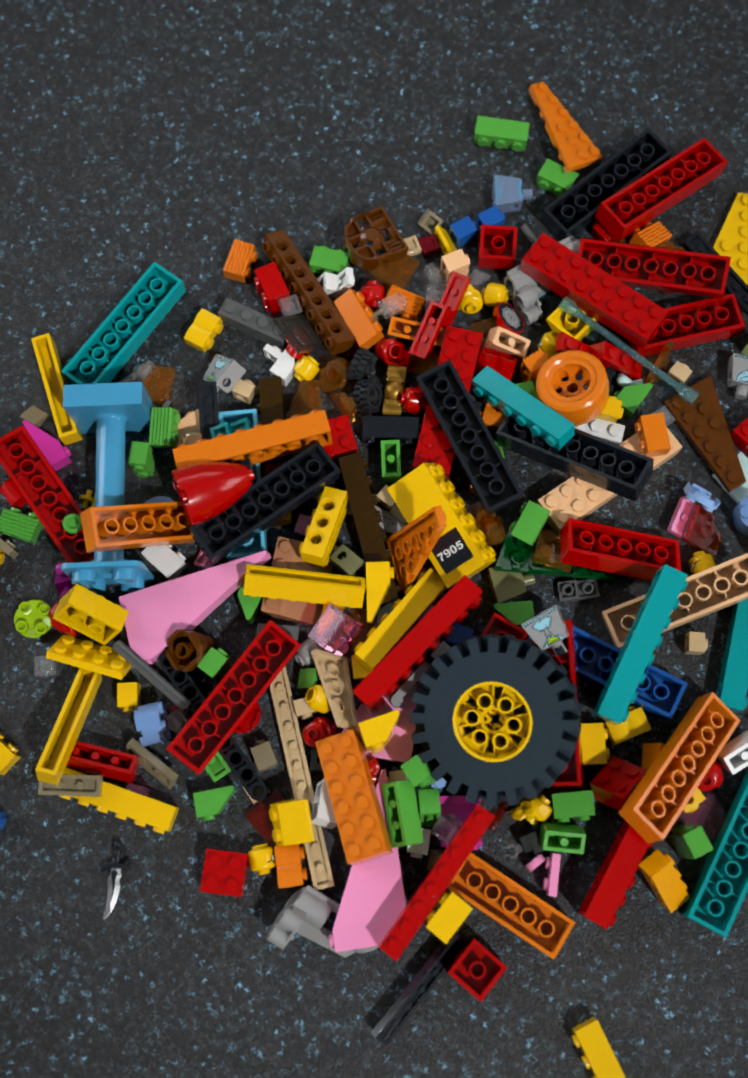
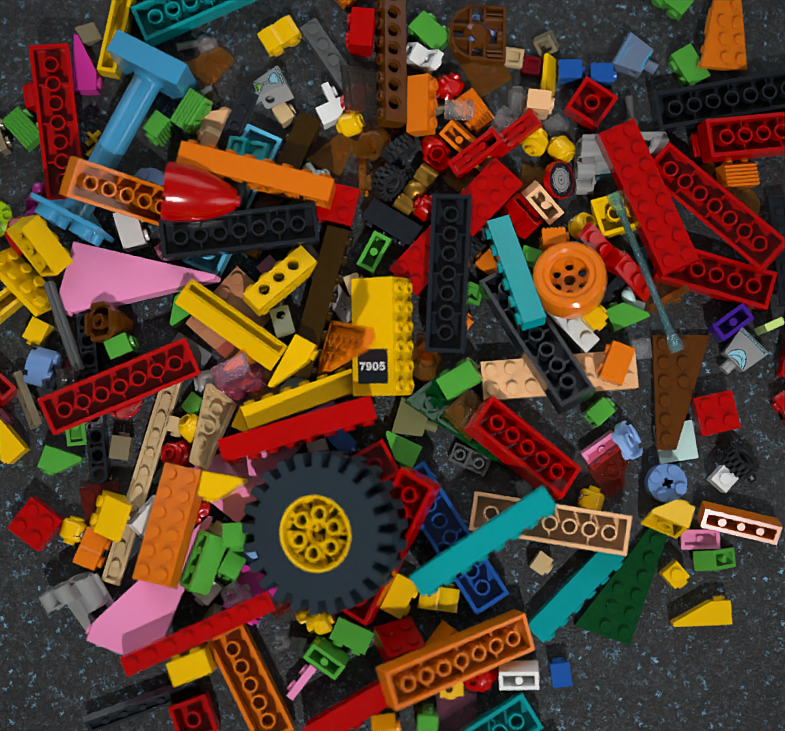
camera: 35 degrees right, 10 degrees up
(72, 523) = (63, 155): bright green tile -> none
(290, 305) = (366, 58): clear plate -> none
(409, 686) = (272, 460): light grey plate -> none
(537, 861) = (293, 663): bright pink tile -> none
(548, 630) = (409, 484): light grey torso -> none
(662, 486) = (599, 411): none -> bright green brick
(679, 372) = (681, 317): tan plate -> none
(721, 355) = (730, 323): none -> dark purple brick

